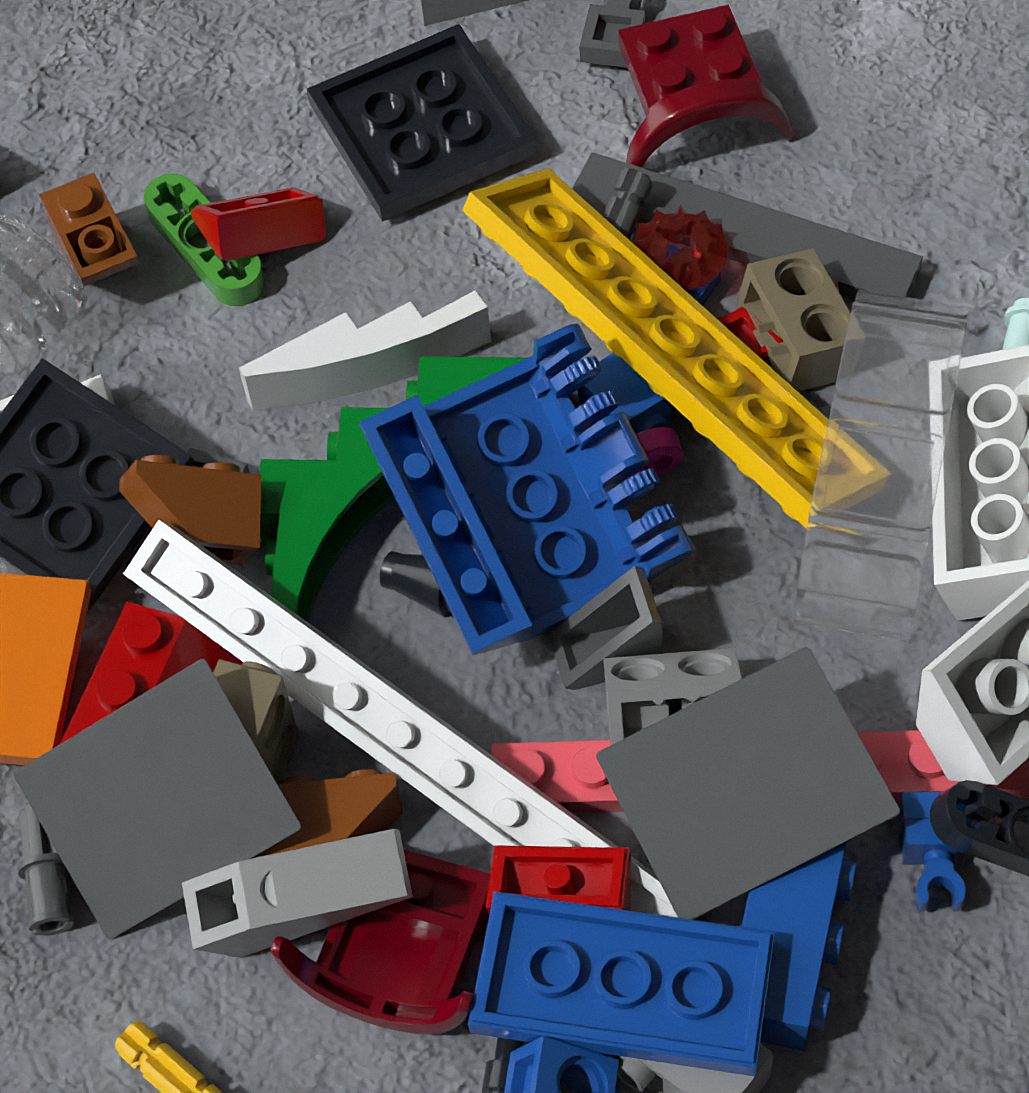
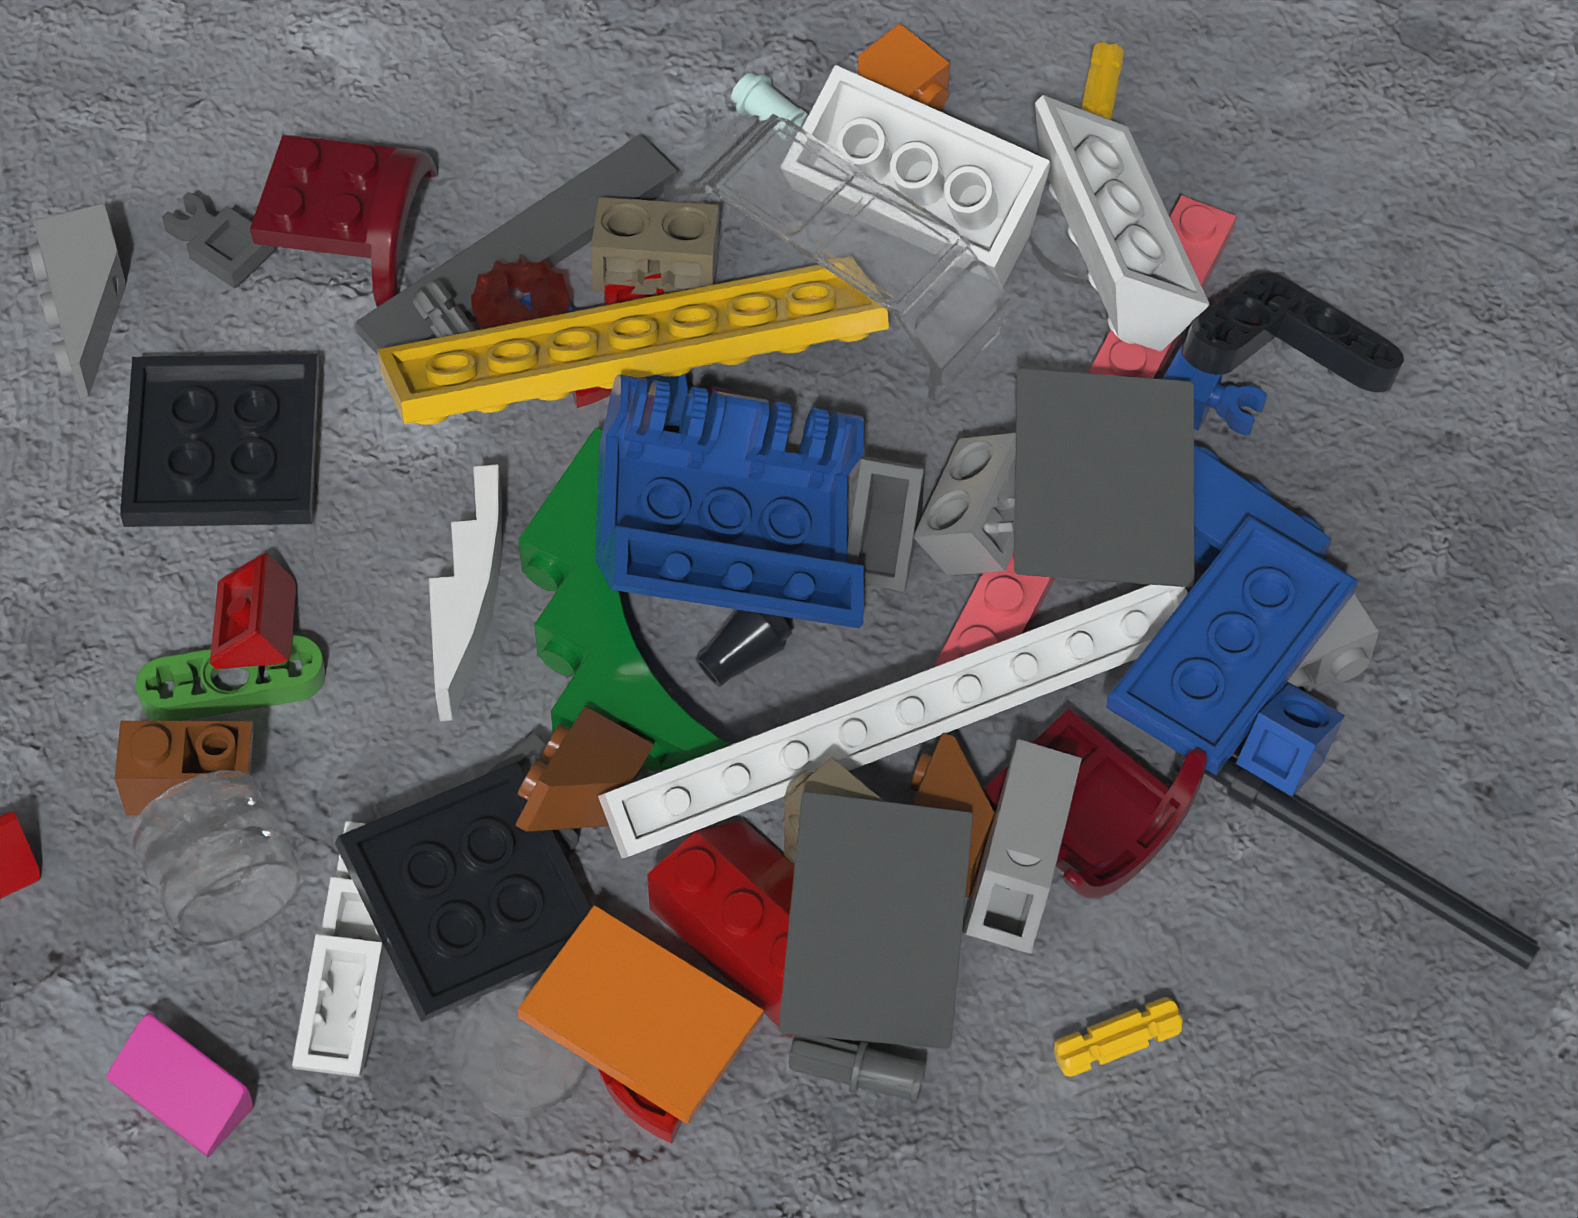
camera: 70 degrees left, 0 degrees up
(563, 874) = (1104, 656): red slope -> none

